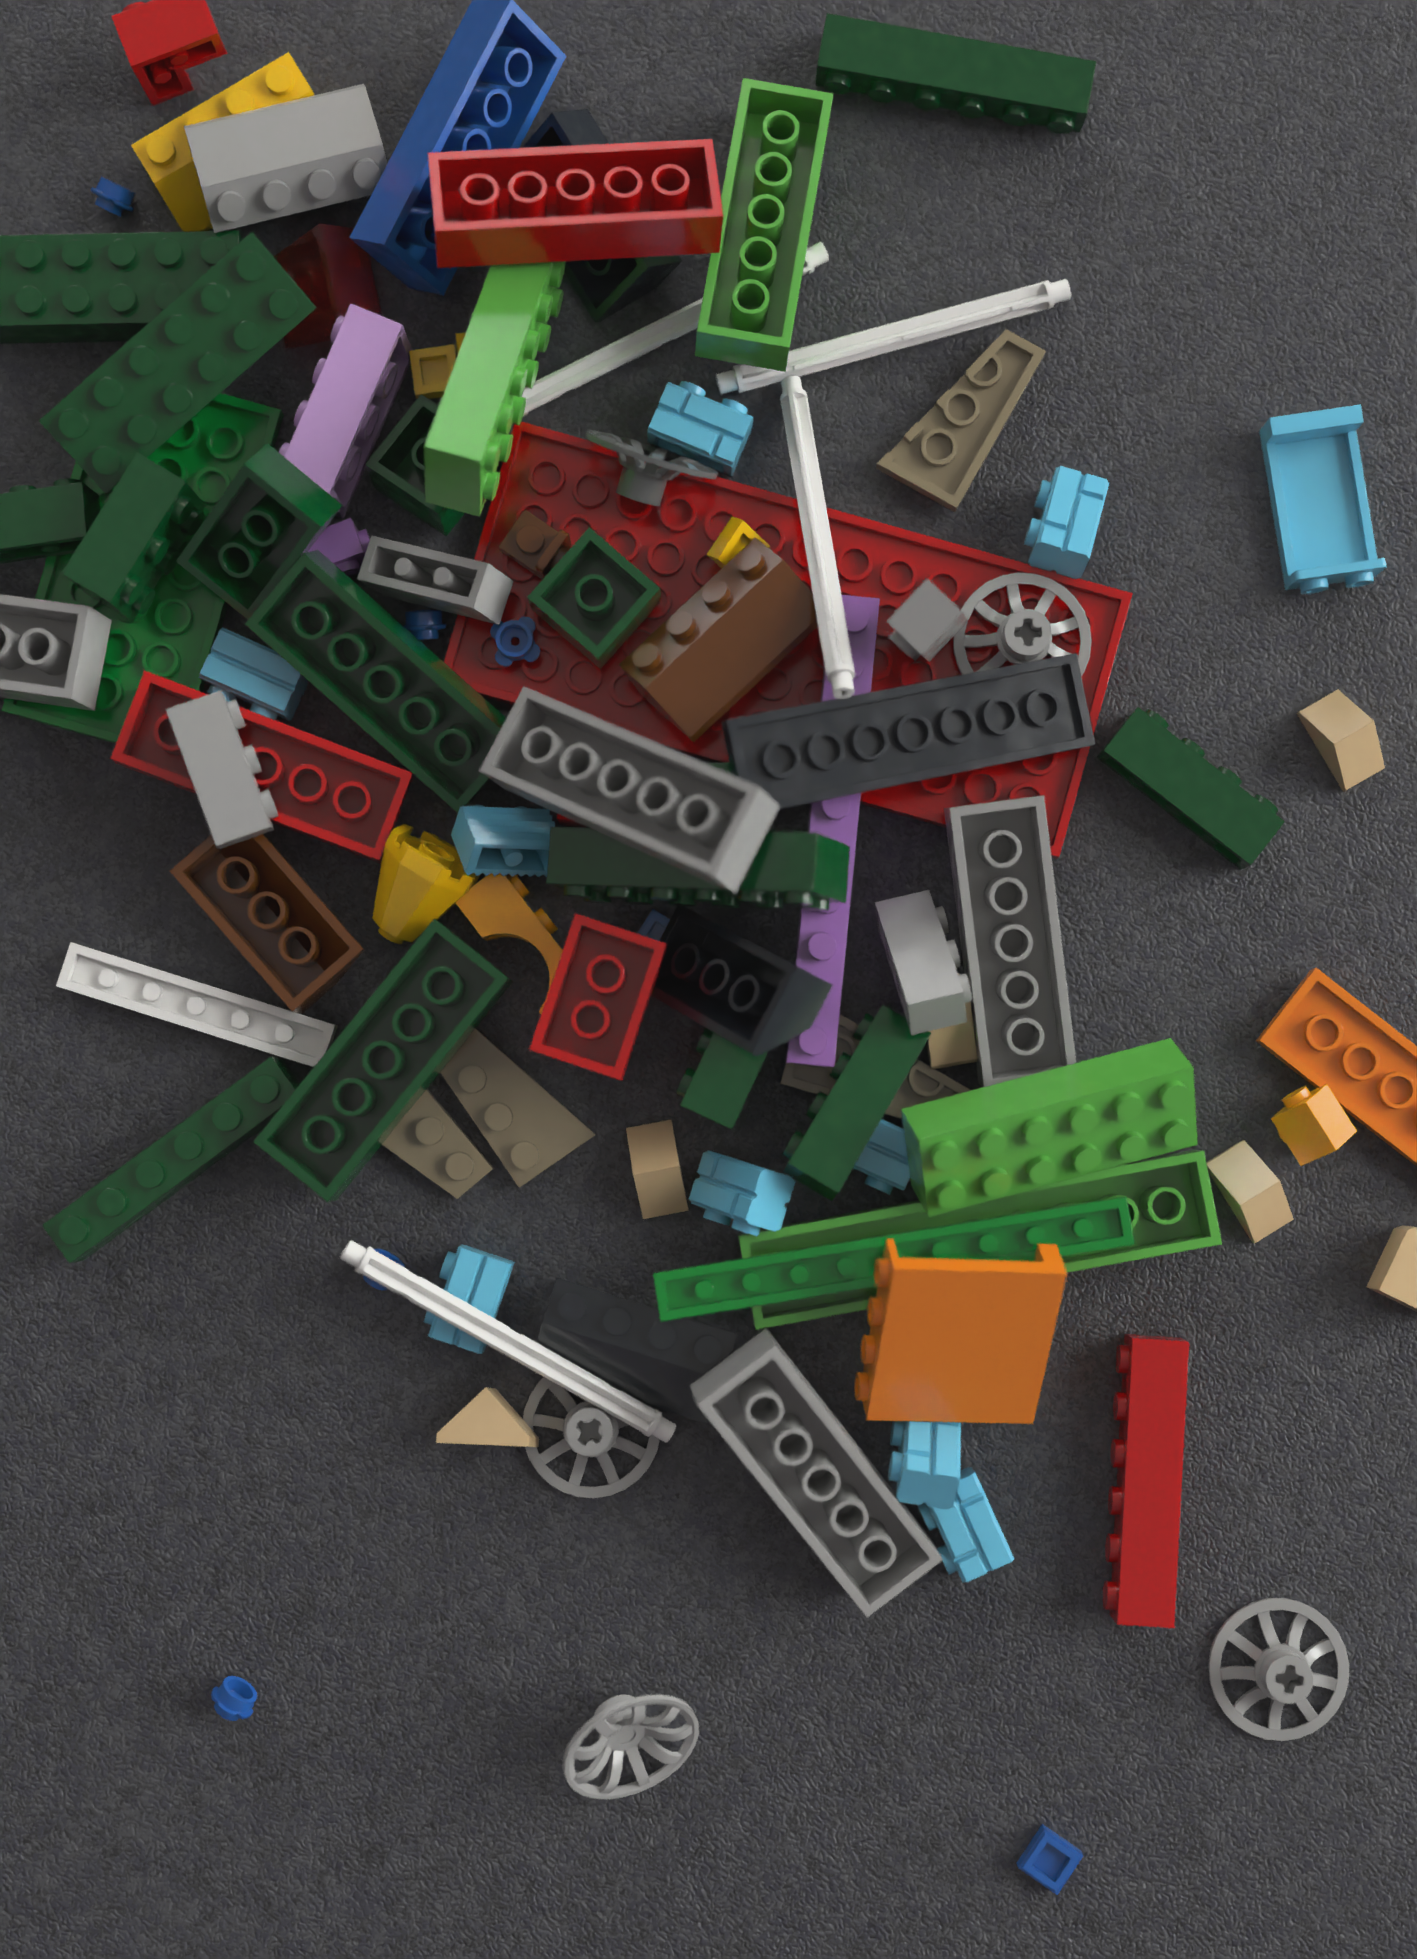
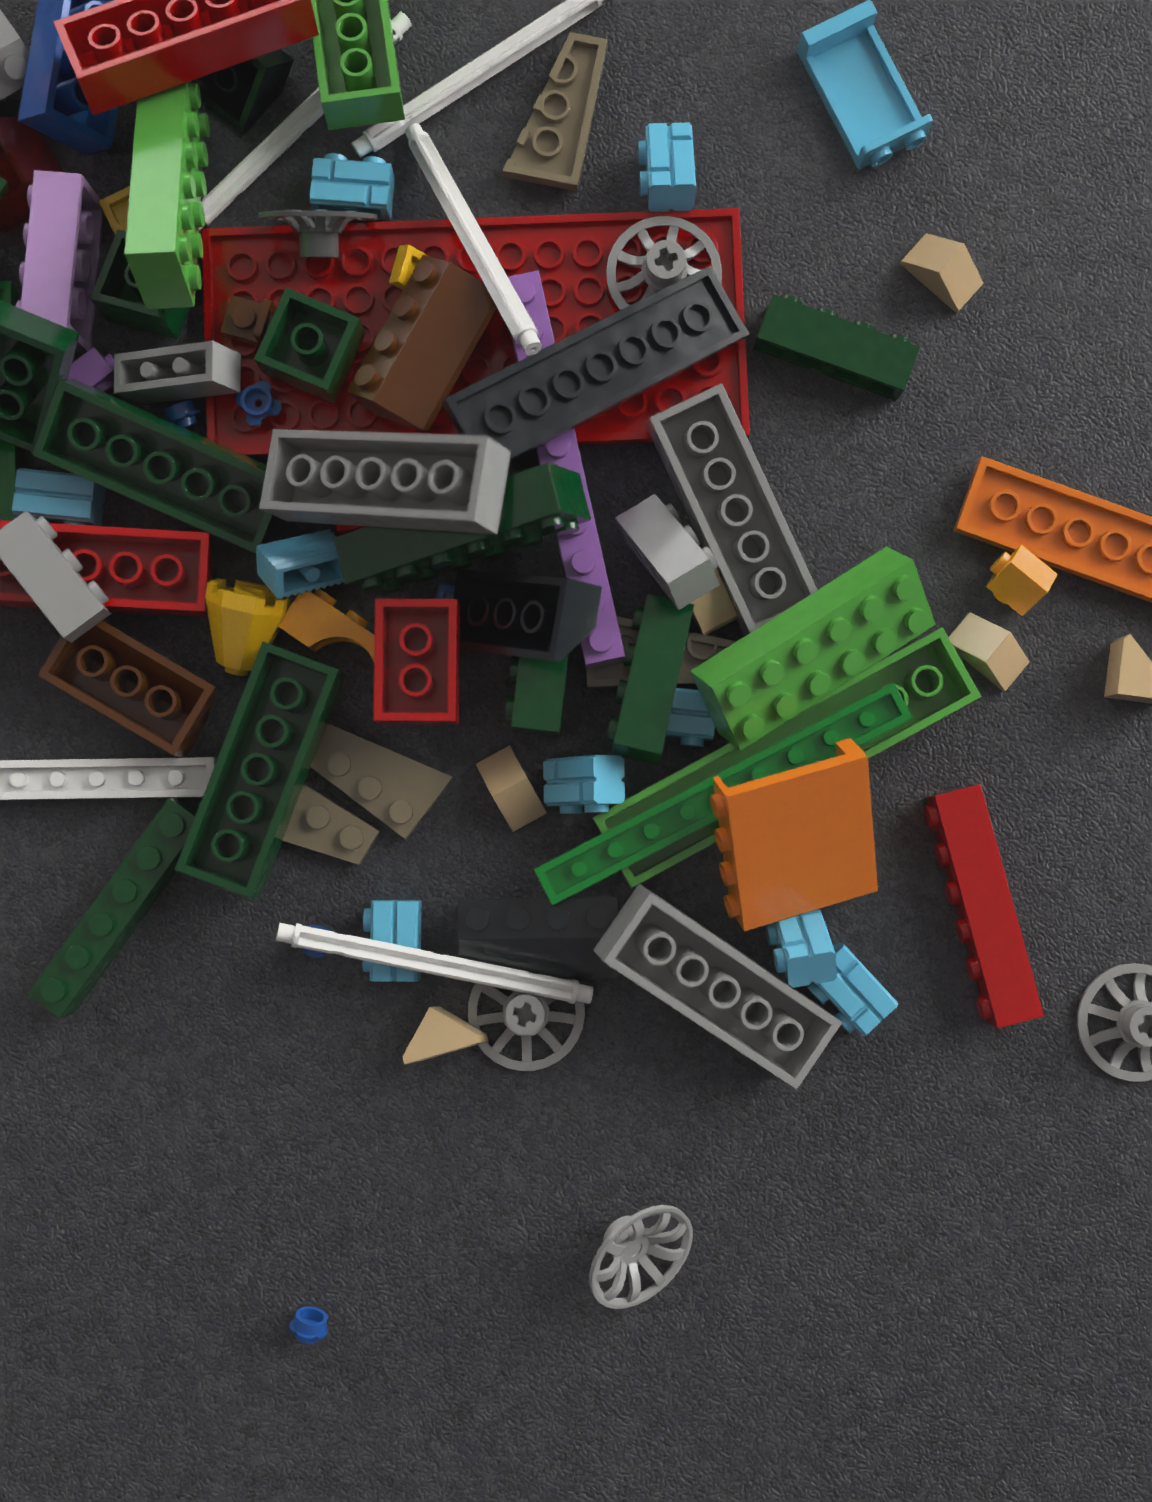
camera: 20 degrees left, 0 degrees up
(925, 622) = (582, 273): light grey brick -> none
(1049, 1859) = (1005, 1234): blue tile -> none

